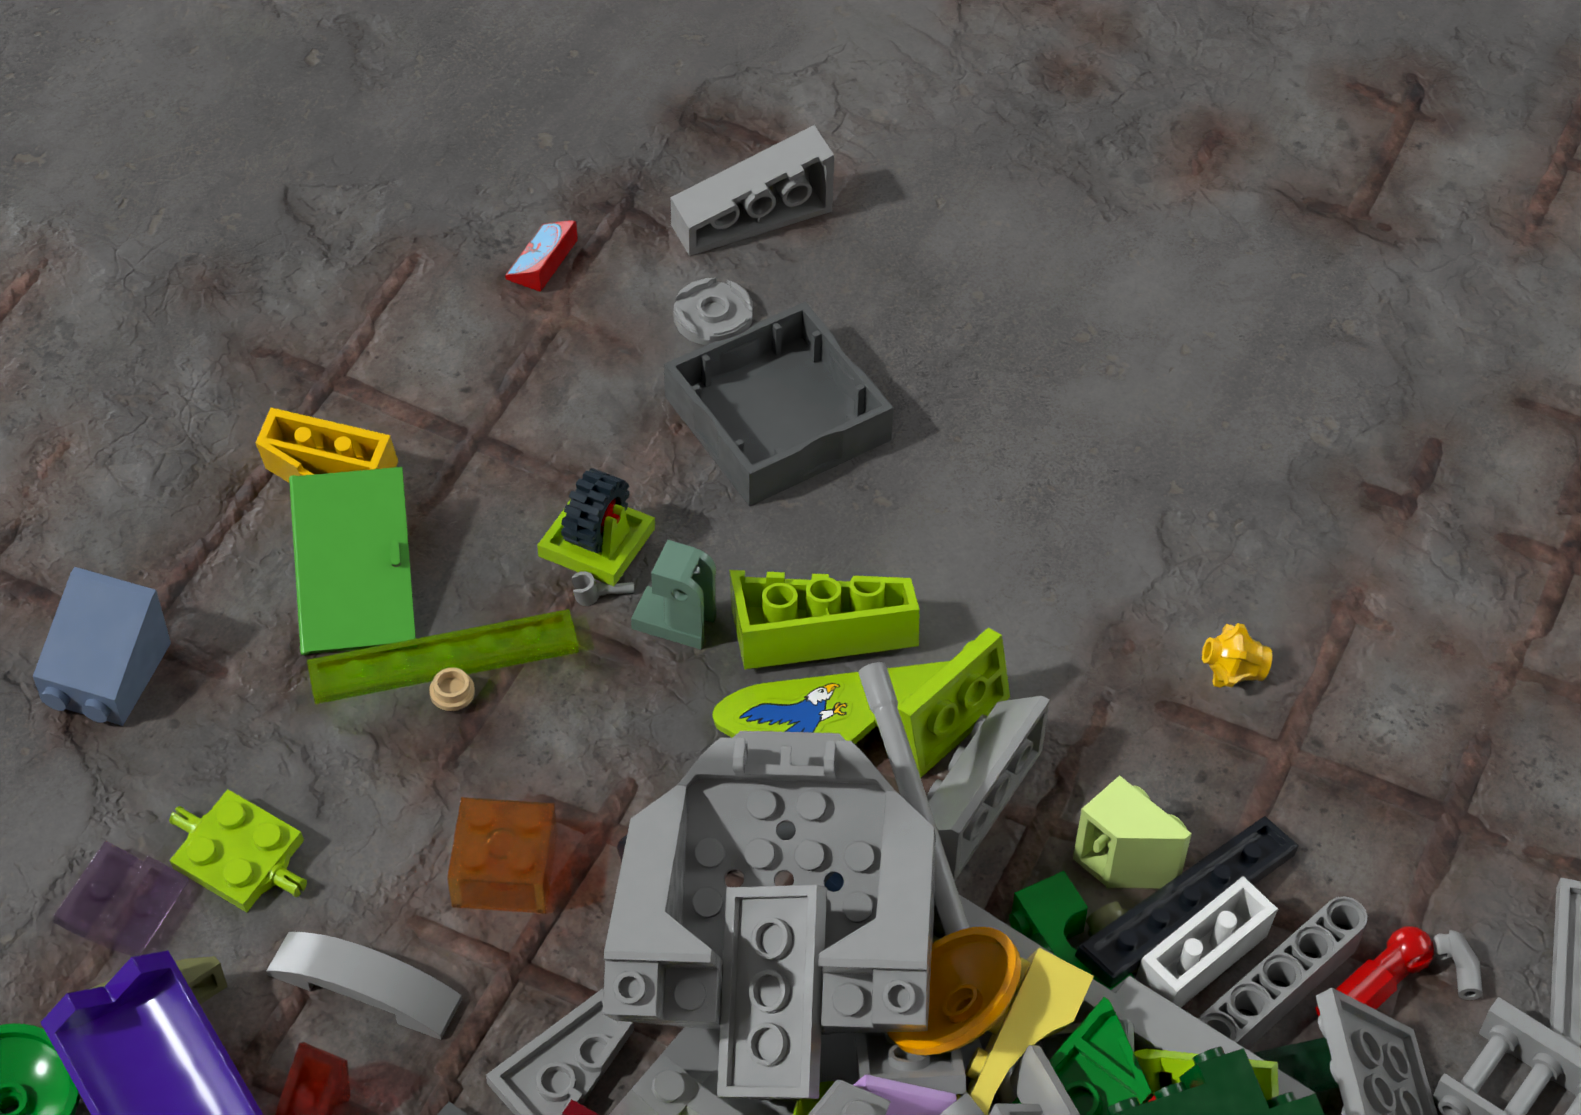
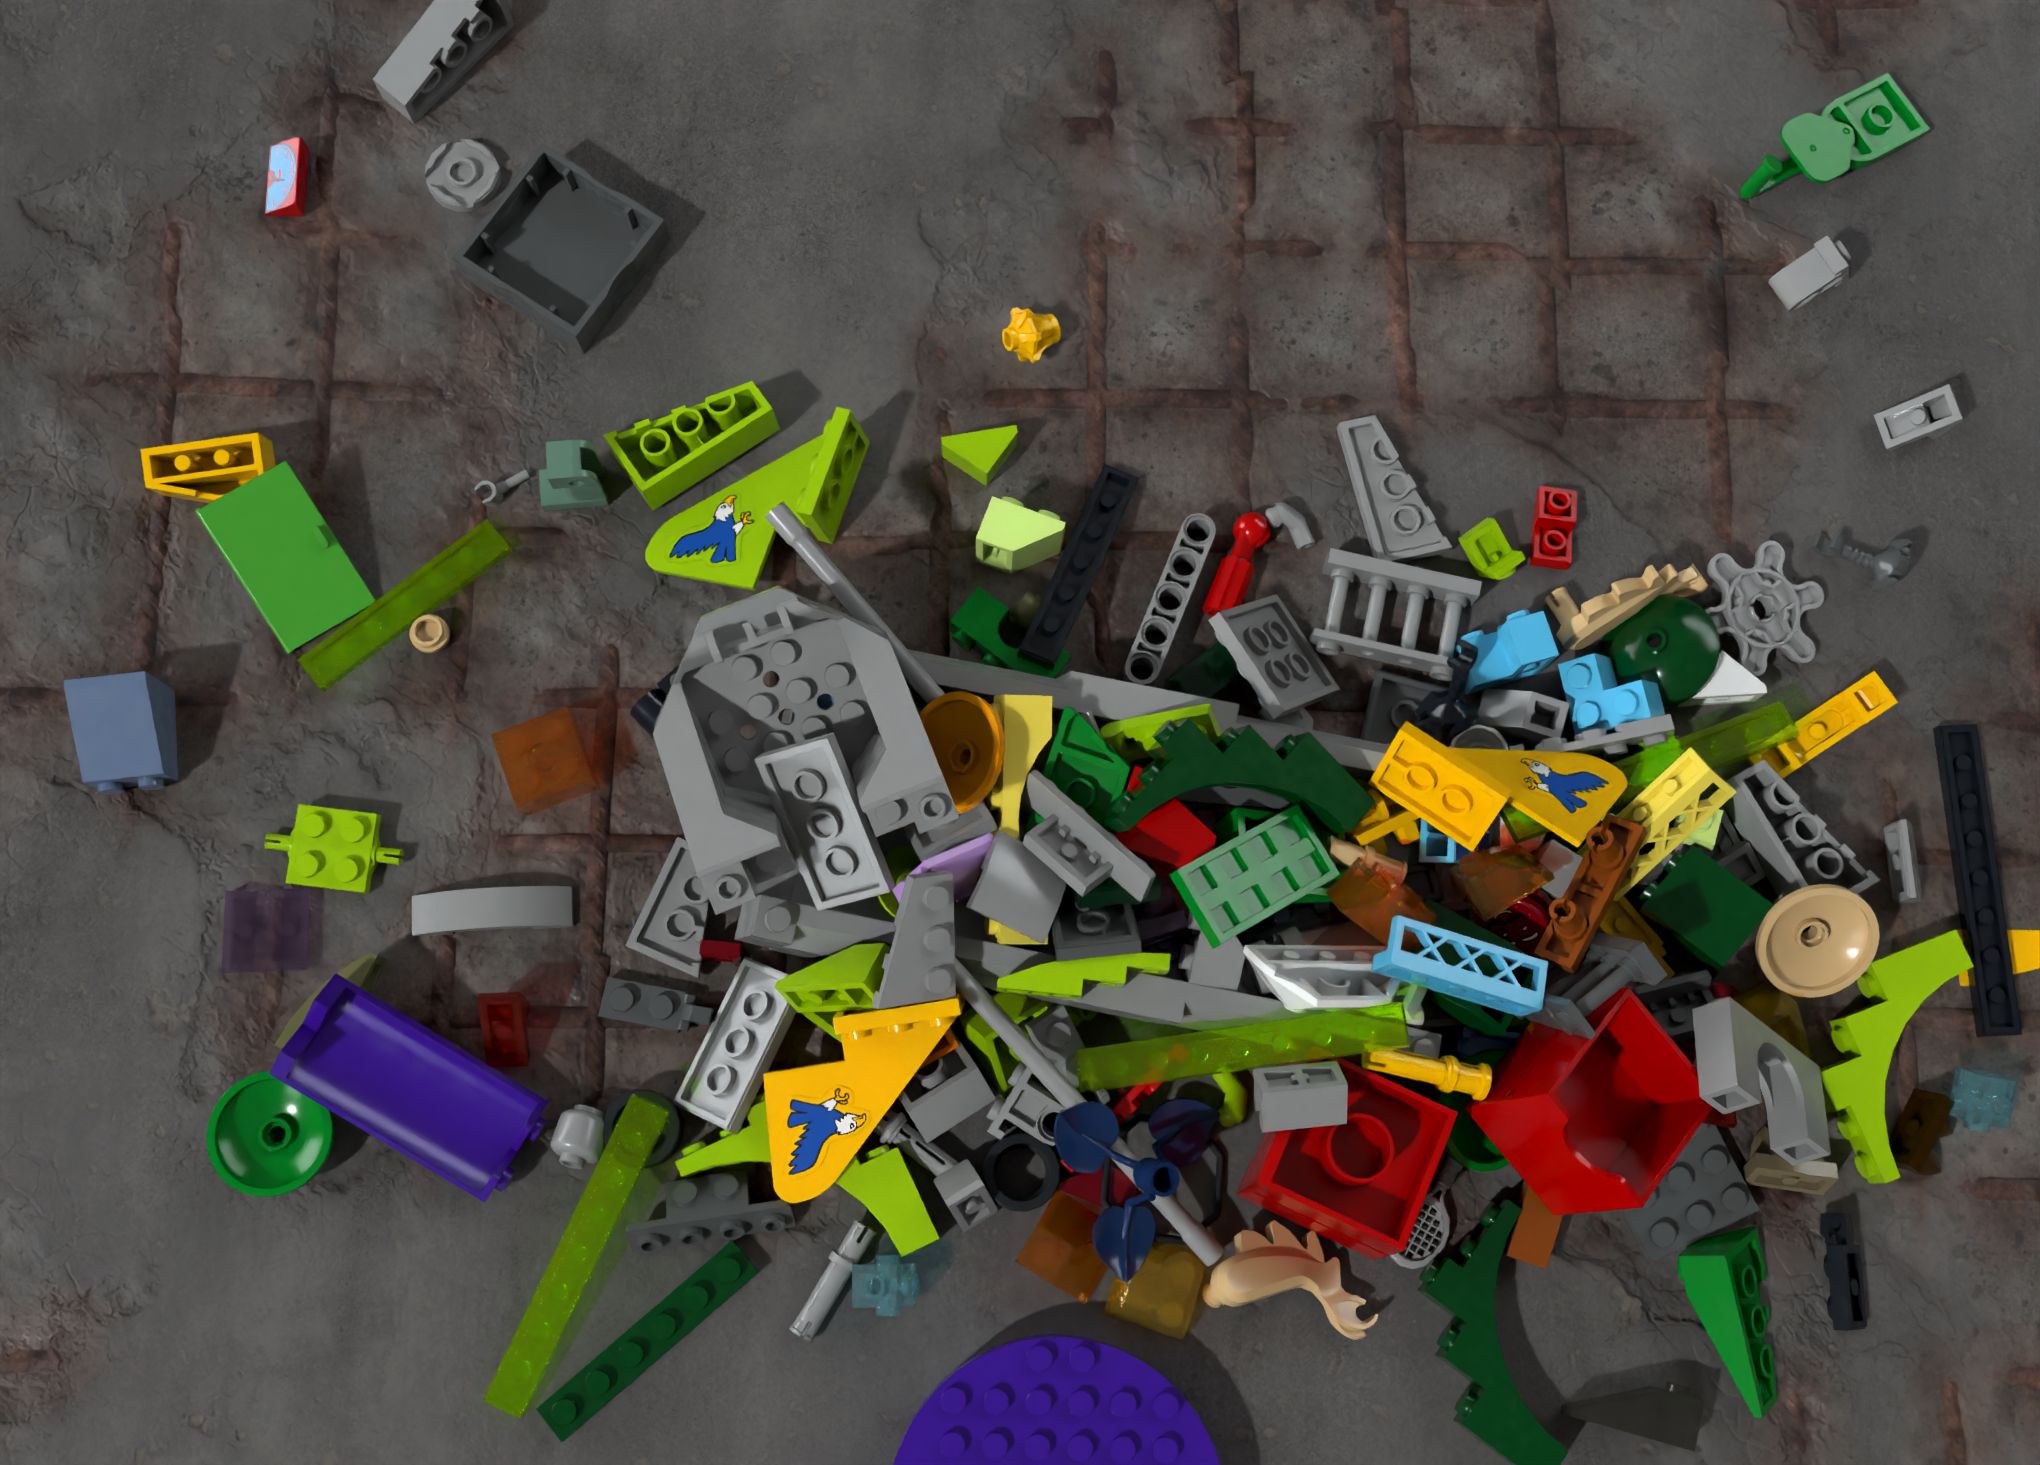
camera: 30 degrees left, 25 degrees up
(597, 529) = (474, 440): plate -> none
(986, 775) = (882, 531): light grey slope -> none
(1129, 746) = (980, 452): none -> lime slope
(1208, 943) = (1106, 600): white brick -> none

